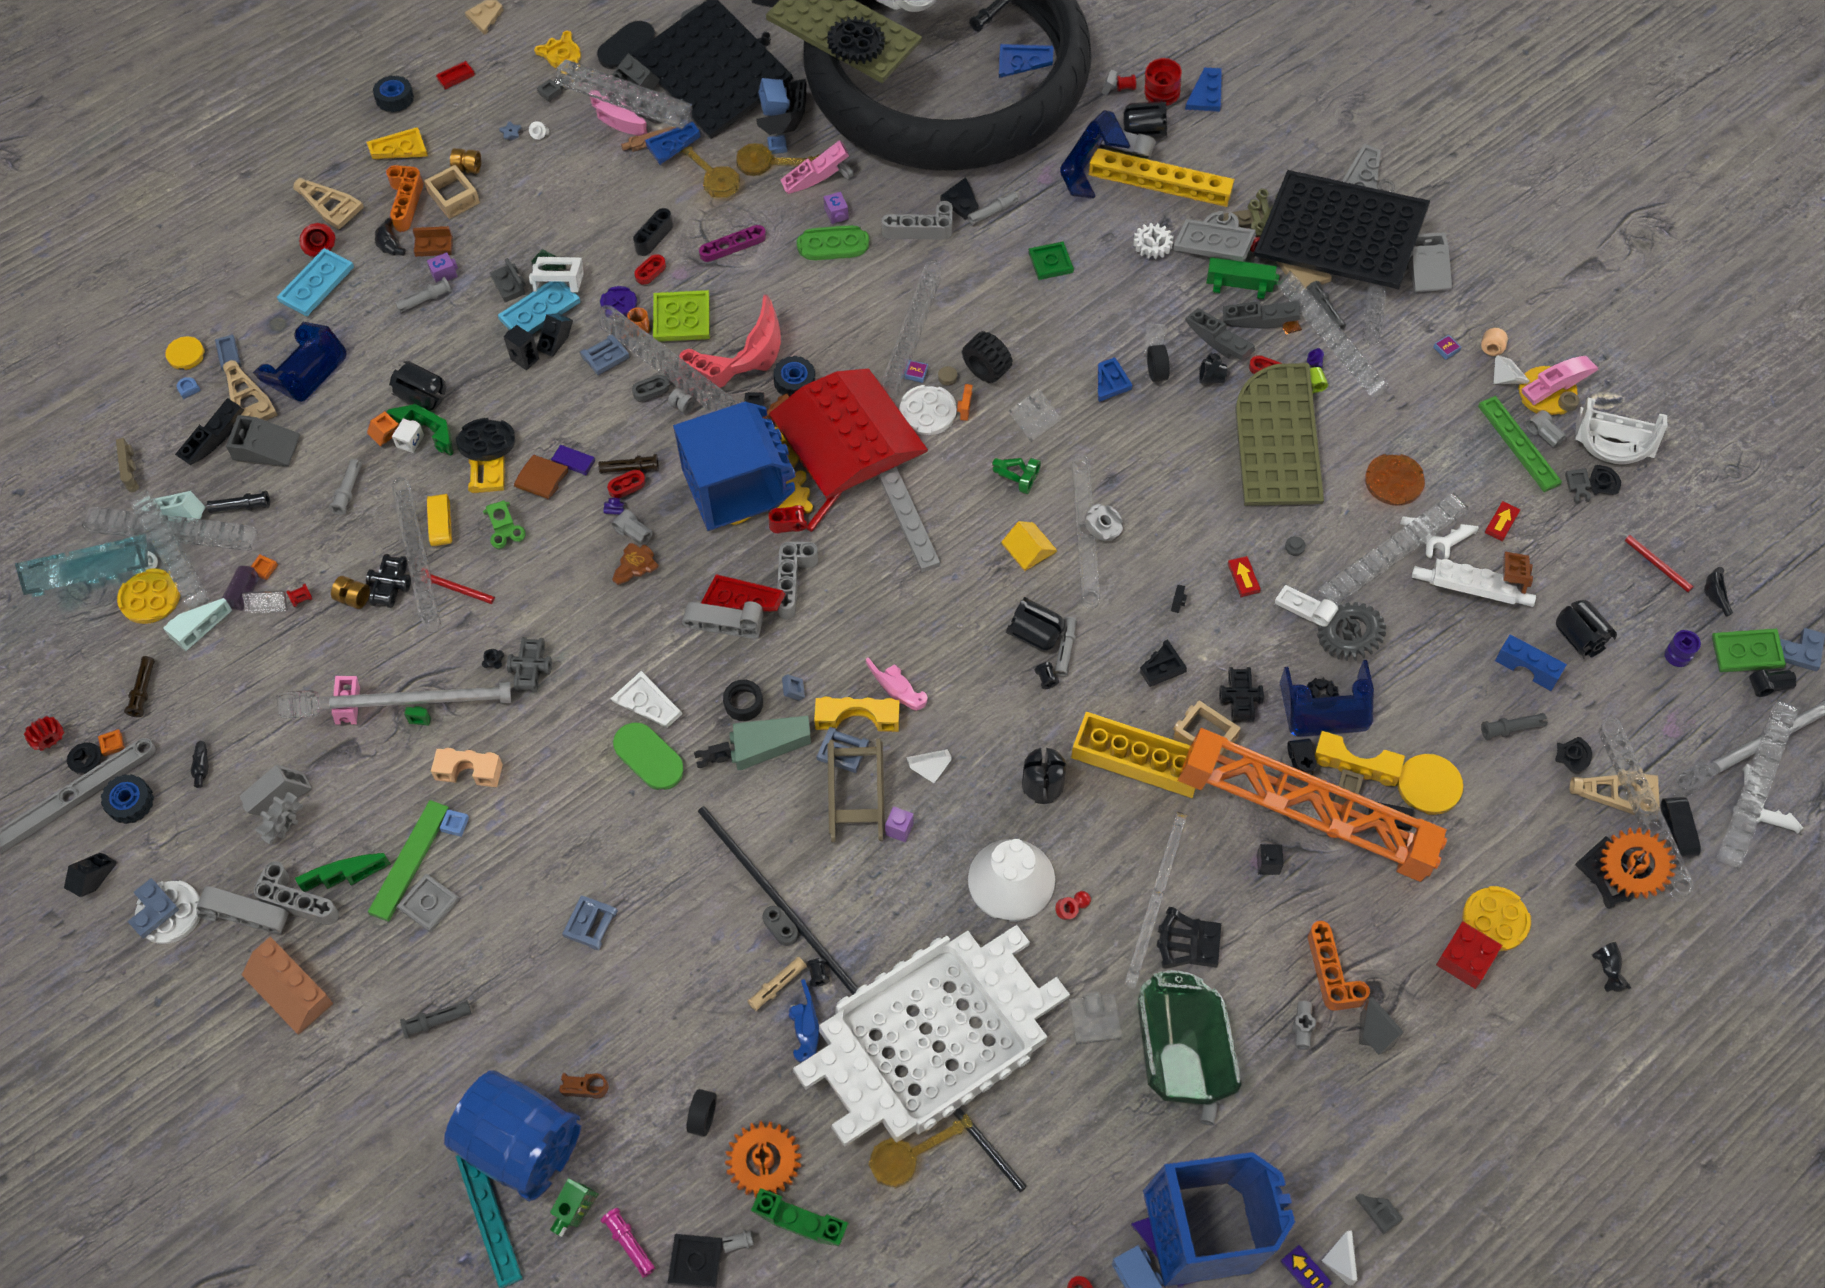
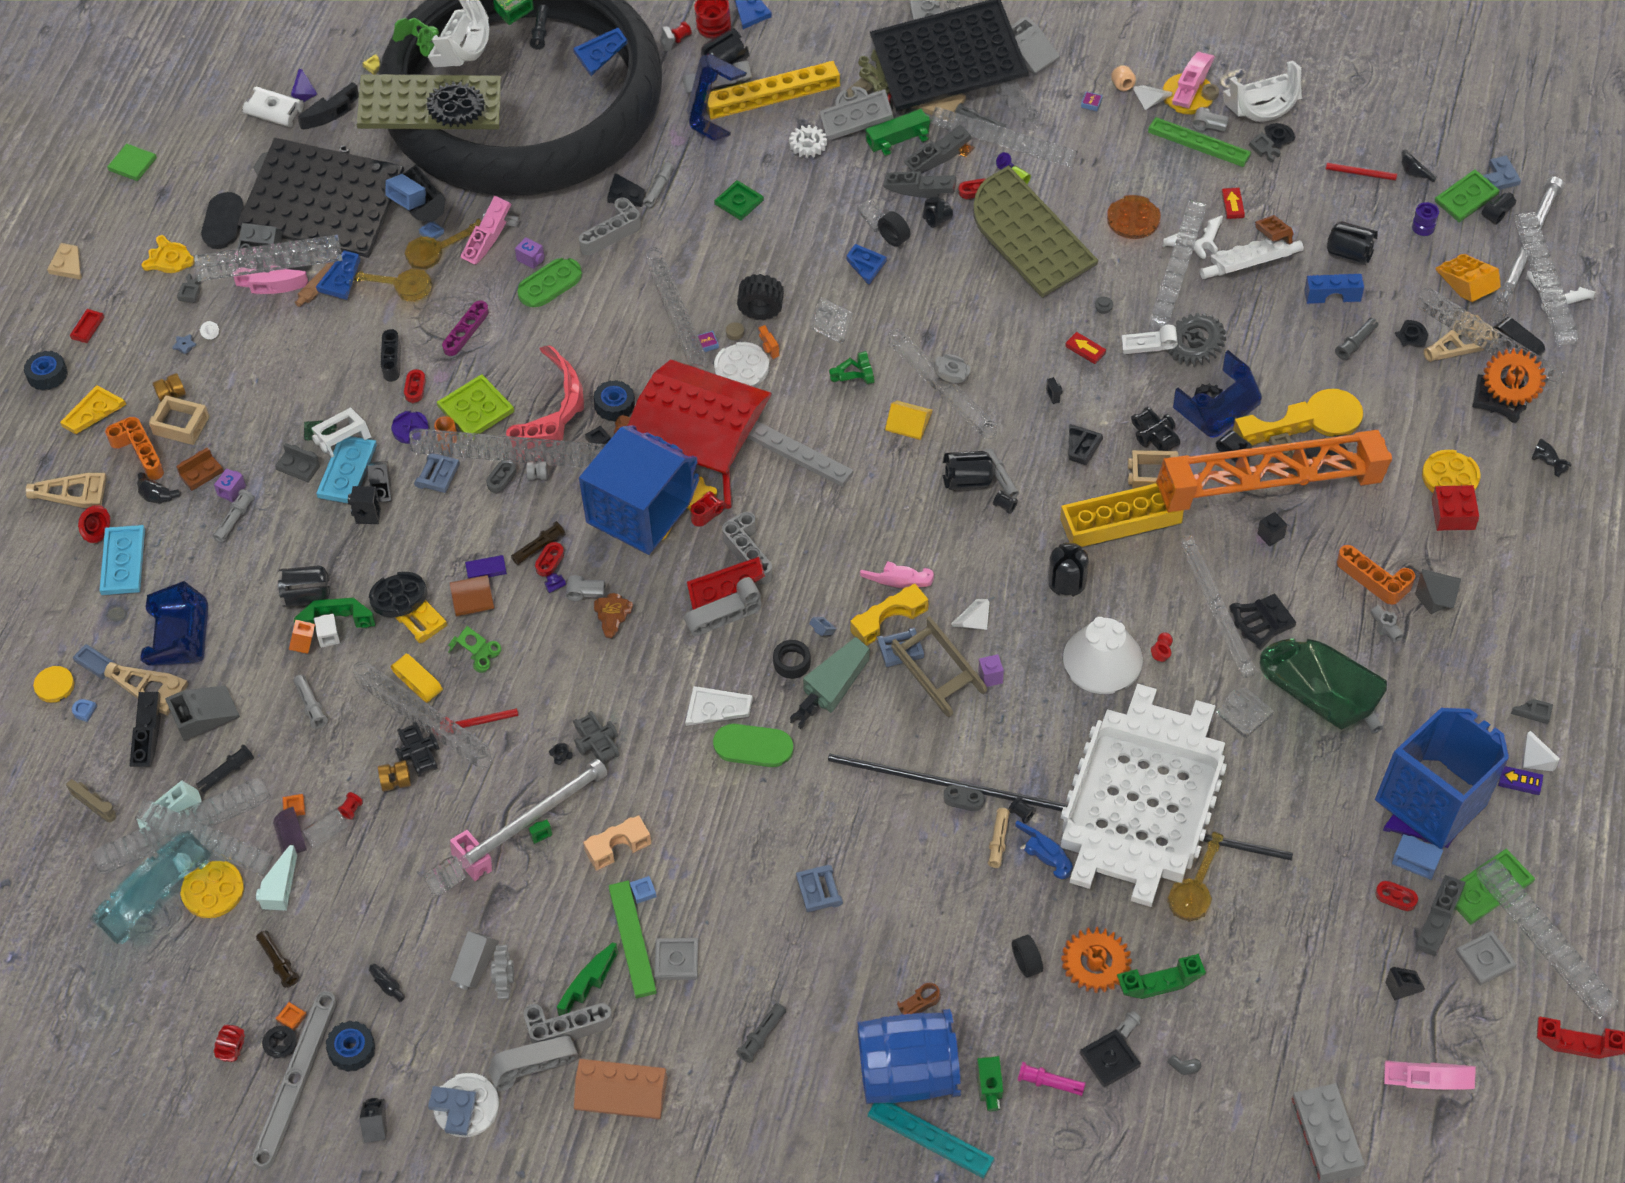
camera: 35 degrees left, 5 degrees down
(1681, 733) = (1470, 277): none -> light orange slope

